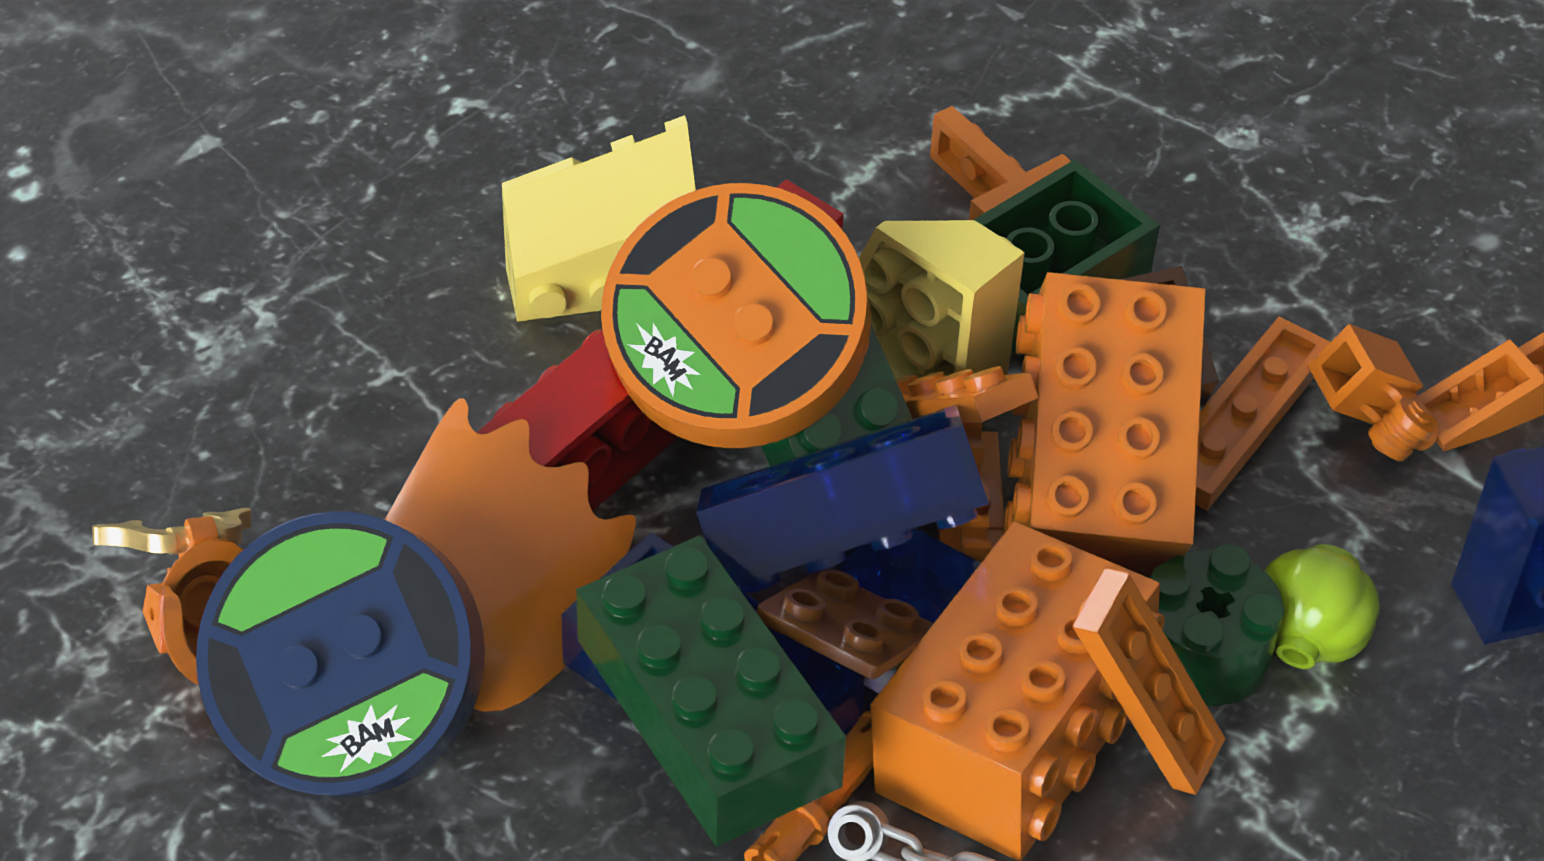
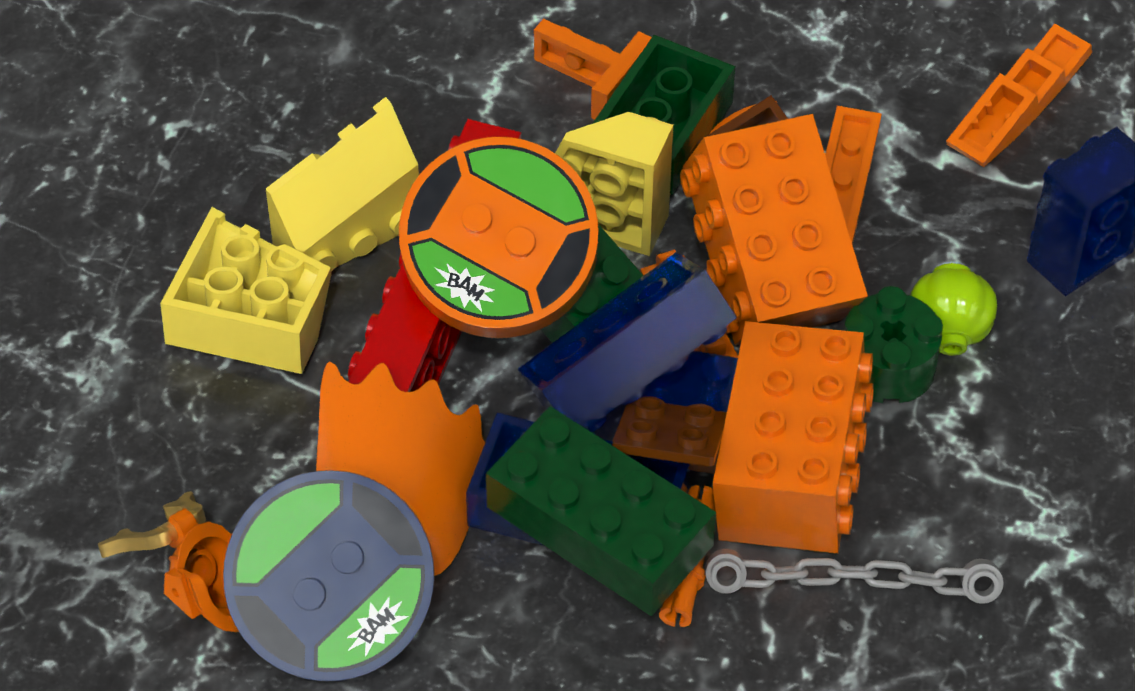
camera: 20 degrees left, 5 degrees up
(429, 307) = (246, 298): none -> light yellow wedge
(976, 395) = (691, 239): orange plate -> none
(1149, 680) = (884, 402): orange plate -> none
(1375, 383) = (922, 134): orange brick -> none

